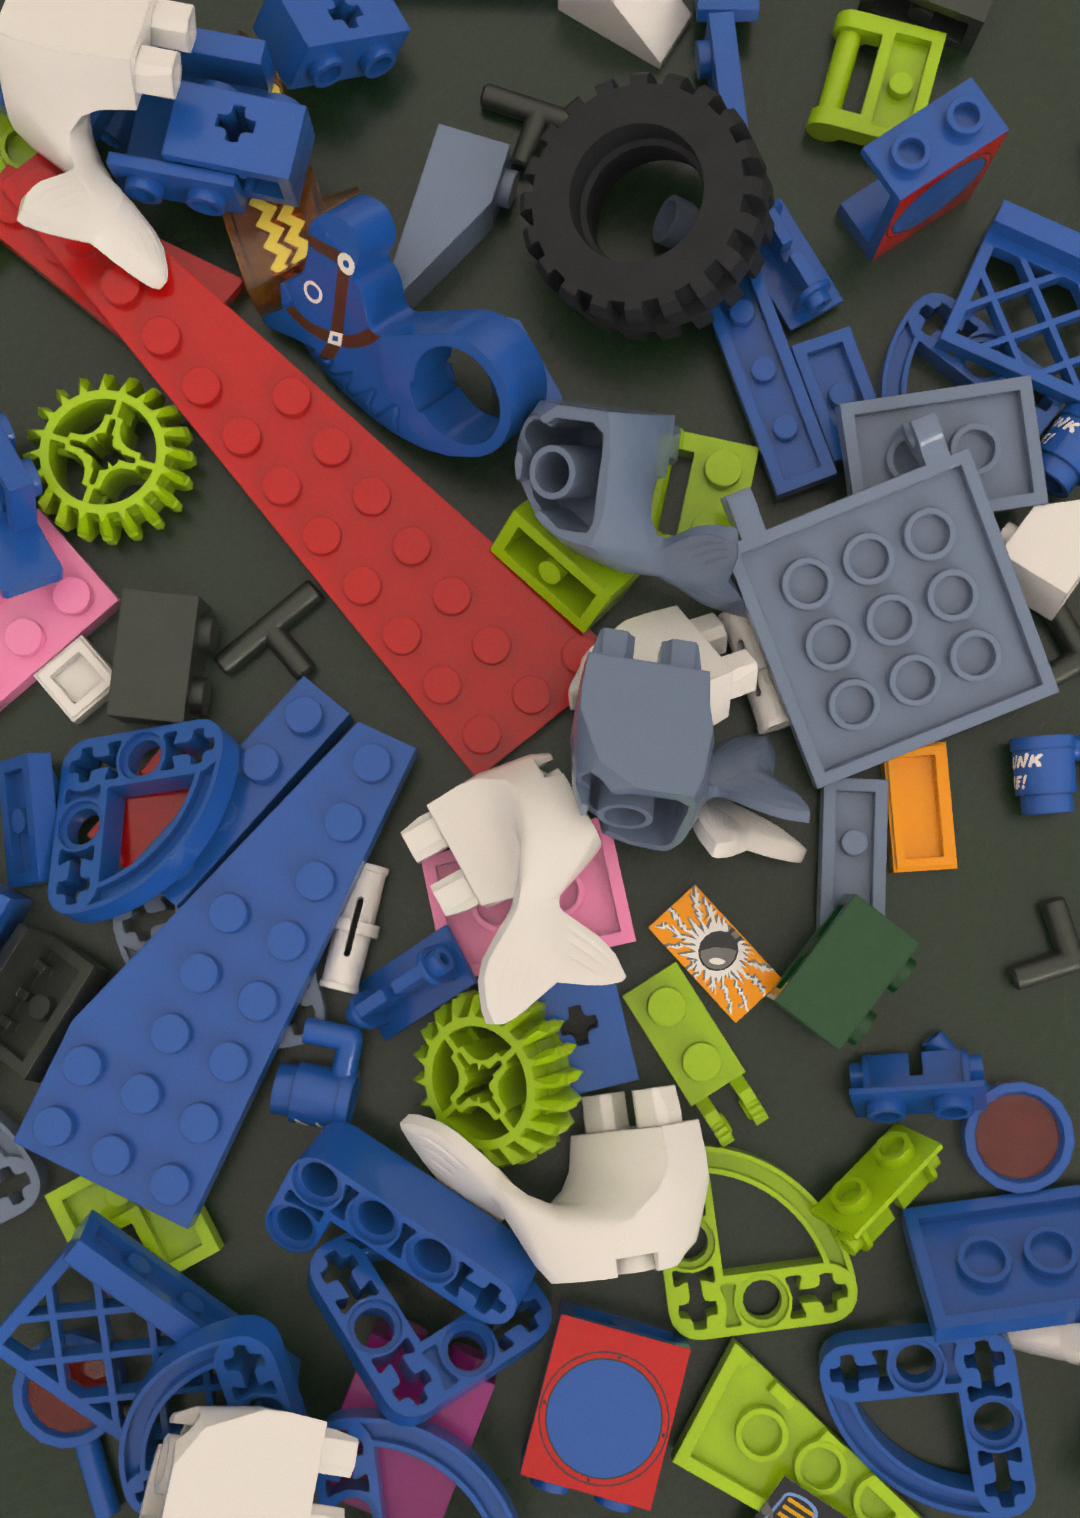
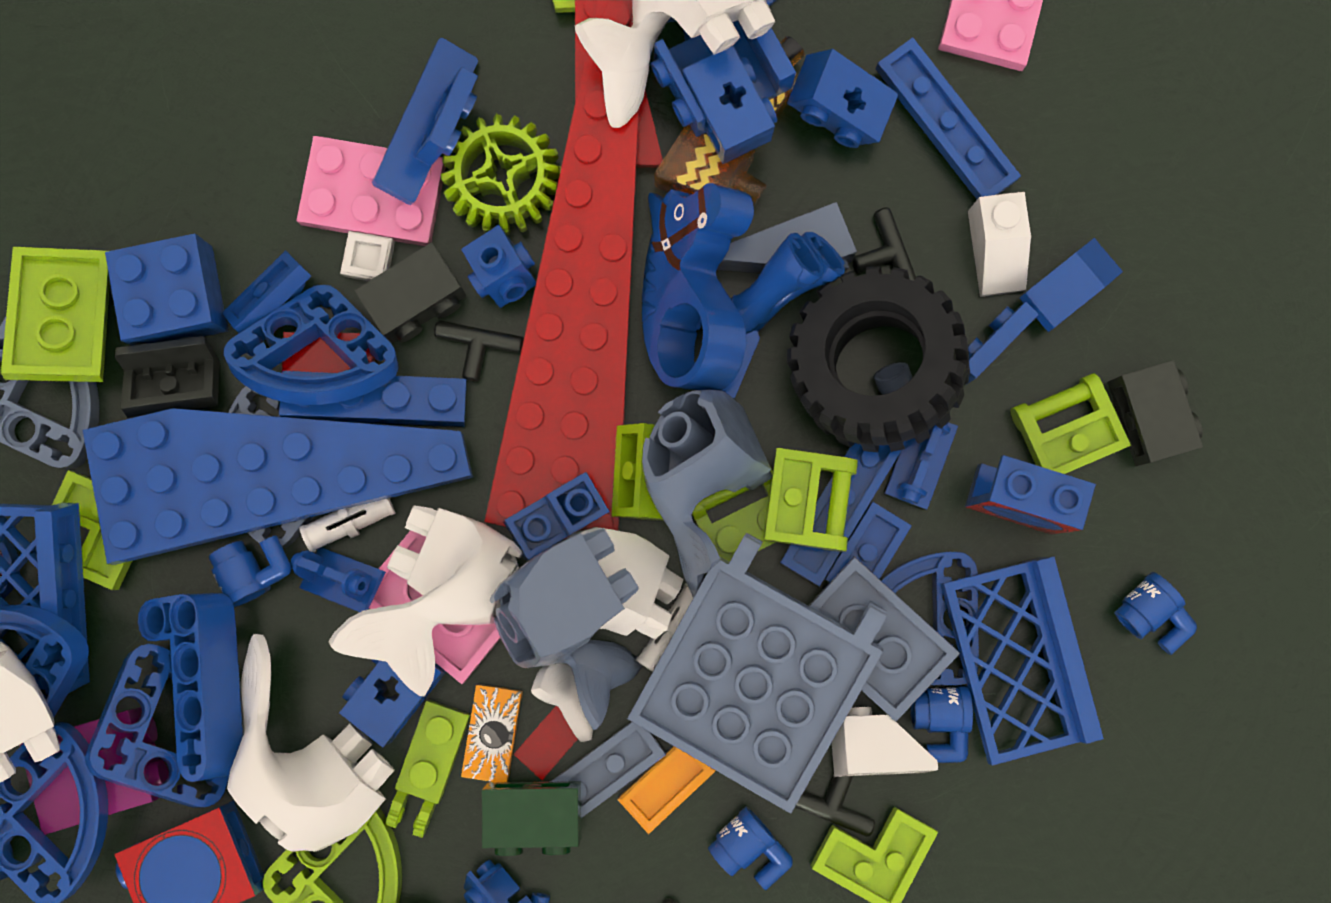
camera: 45 degrees right, 0 degrees up
(211, 538) = (499, 267): none -> blue brick
(478, 219) = (791, 271): none -> blue piece
(500, 1089) = (311, 680): lime gear -> none
(536, 689) = (556, 516): none -> blue slope
(724, 419) = (795, 498): none -> lime plate
(771, 900) = (547, 744): none -> red sticker

